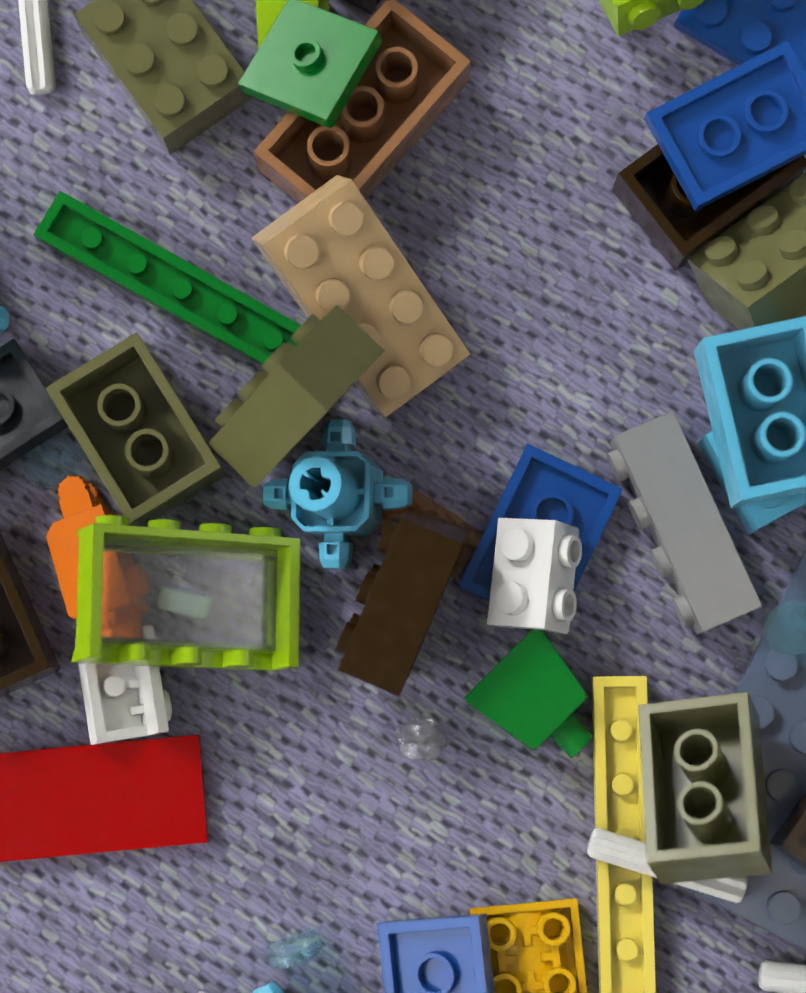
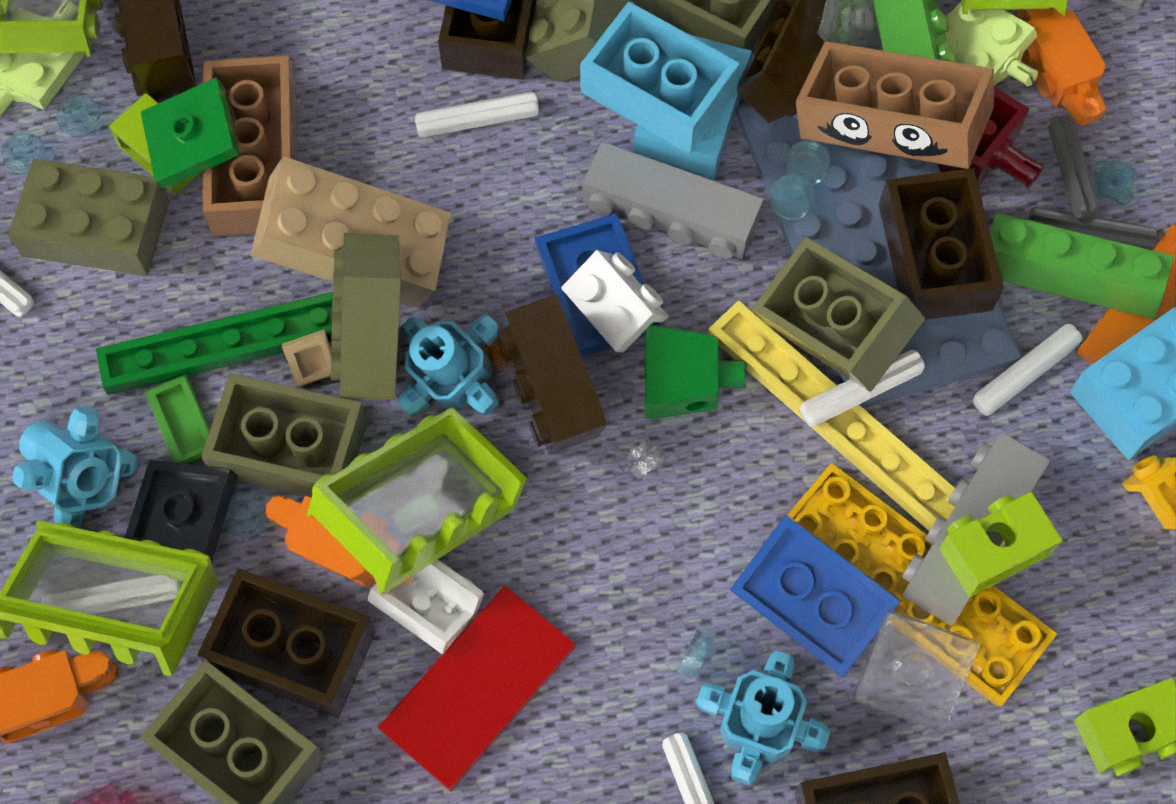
camera: 45 degrees left, 15 degrees down
(75, 323) = (180, 419): none -> bright green tile
(227, 369) = (309, 358): none -> tan tile
(598, 267) = (476, 114): none -> white axle

